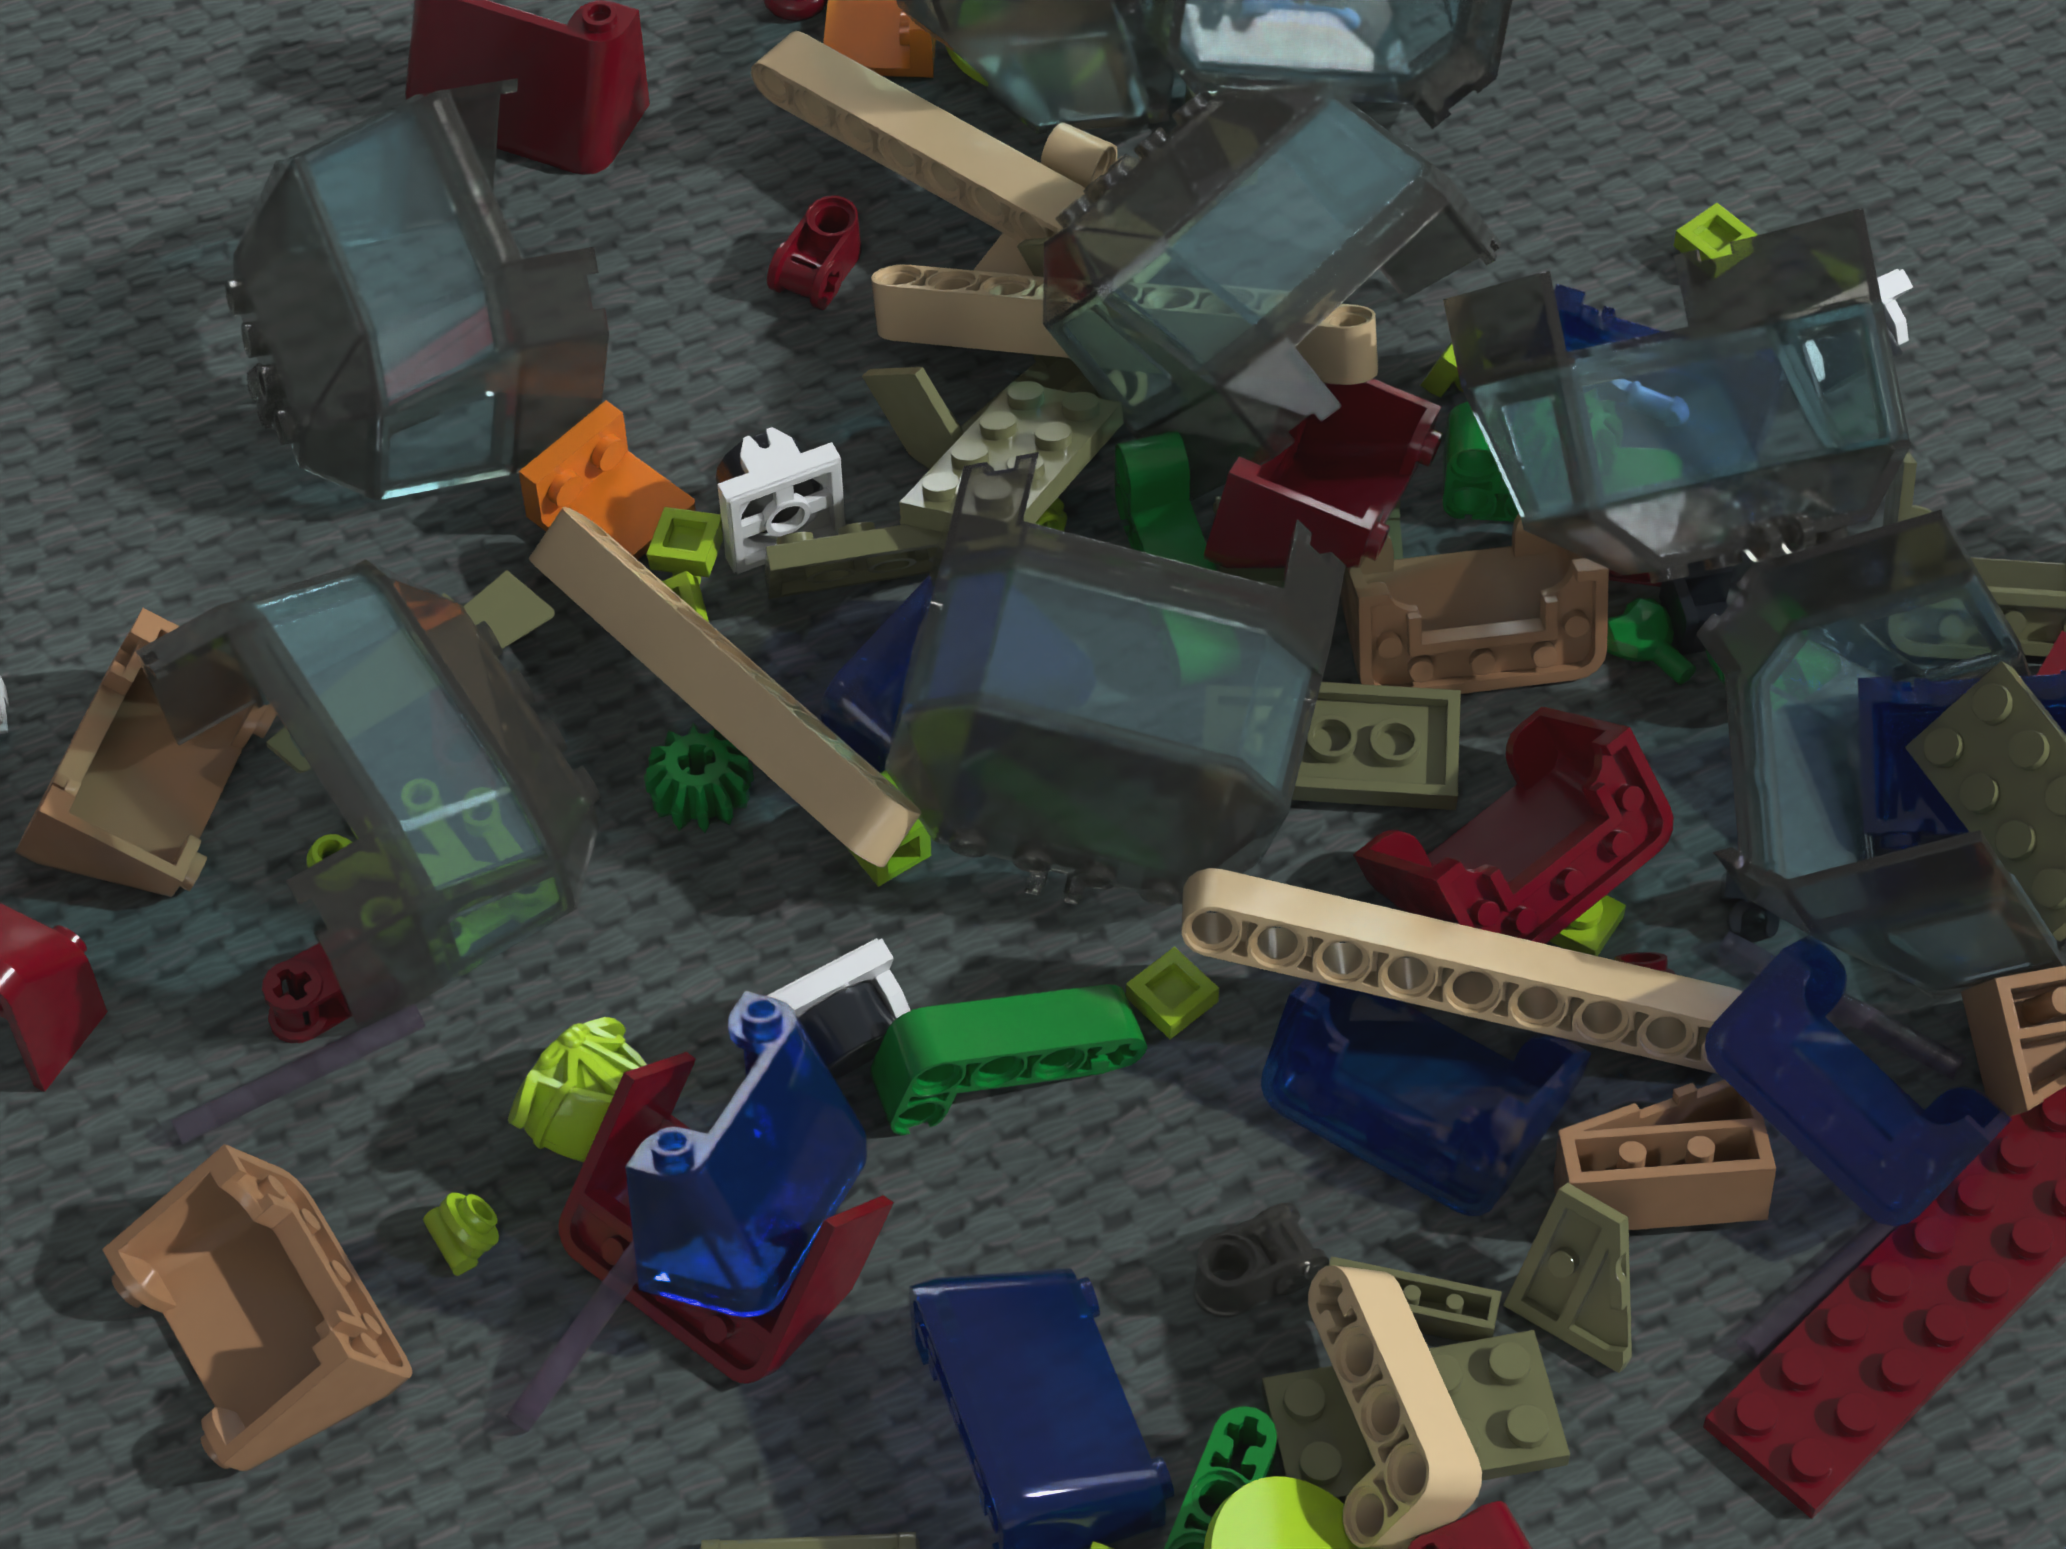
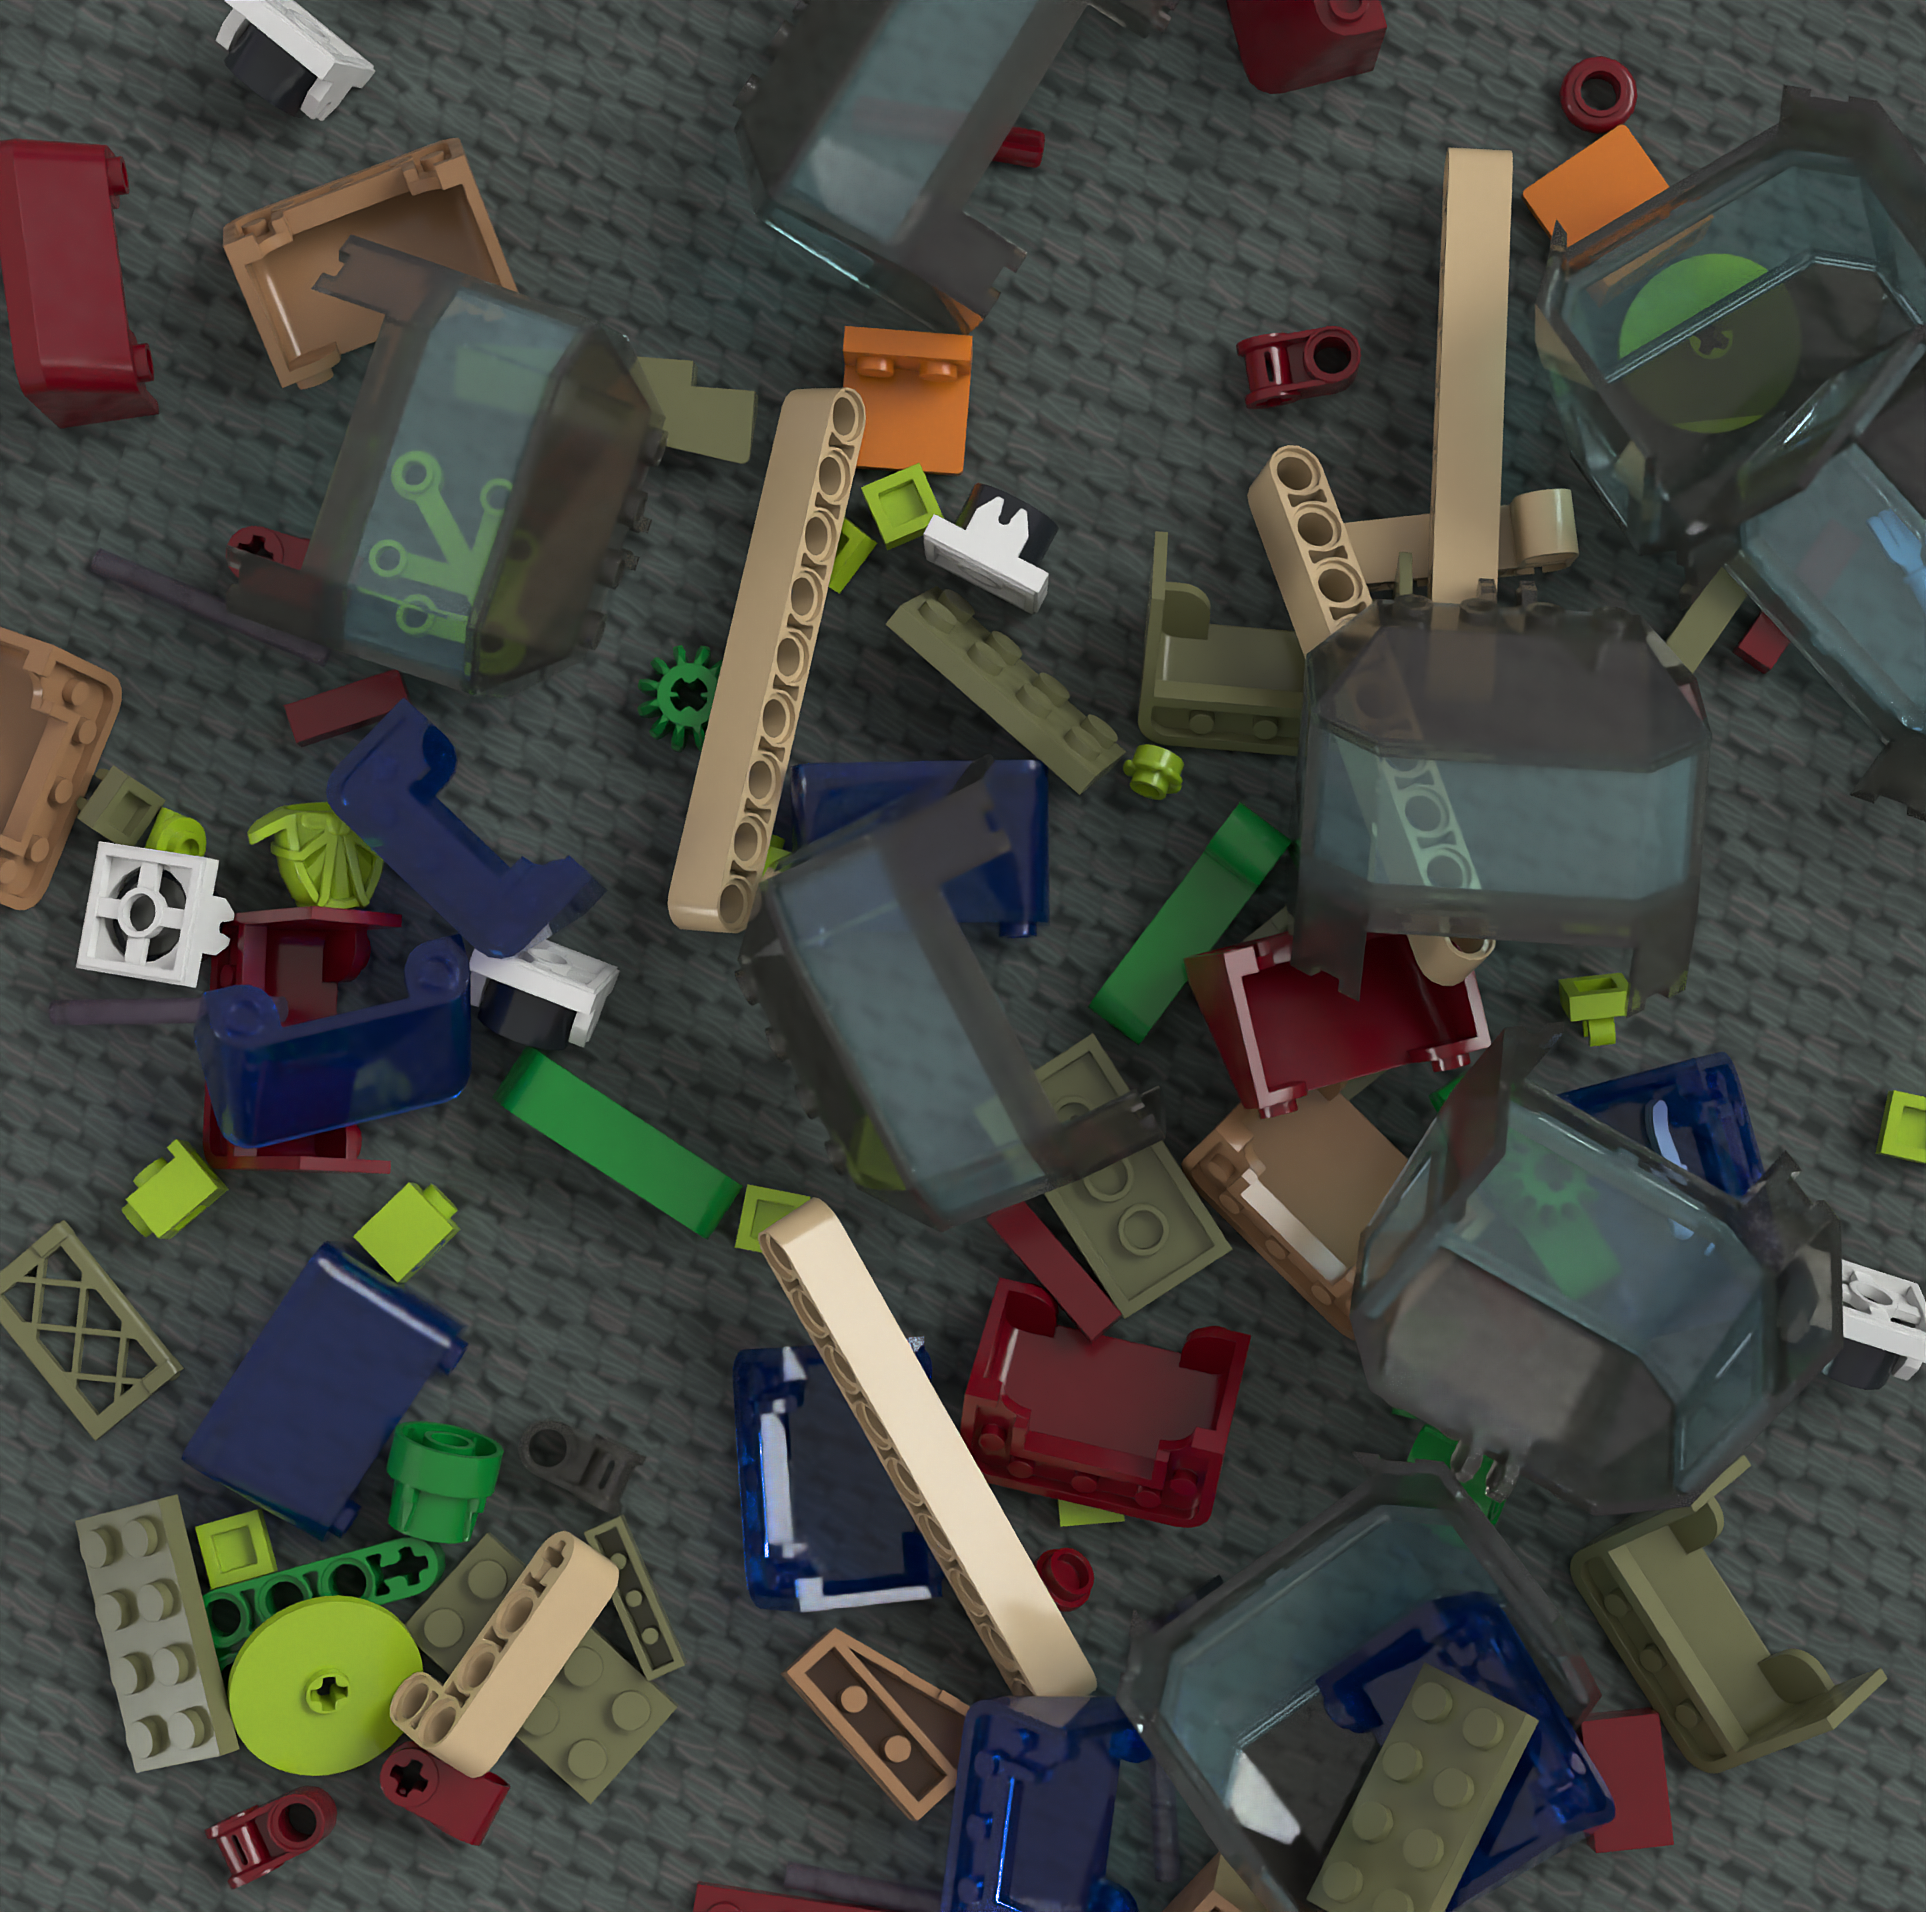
camera: 55 degrees right, 30 degrees up
(395, 1242) = (119, 807): none -> olive tile
(476, 1023) = (346, 707): none -> dark red piece
(517, 1257) = (162, 917): none -> white piece
(665, 971) = (390, 801): none -> clear blue windscreen
(755, 1420) = (172, 1192): none -> lime brick
(948, 1242) = (409, 1230): none -> lime brick
(1021, 421) = (1146, 736): olive plate -> none
(1188, 1368) = (440, 1480): none -> green piece
(1351, 822) = (1055, 1269): none -> dark red piece
(1579, 1278) = (733, 1720): olive wing -> none

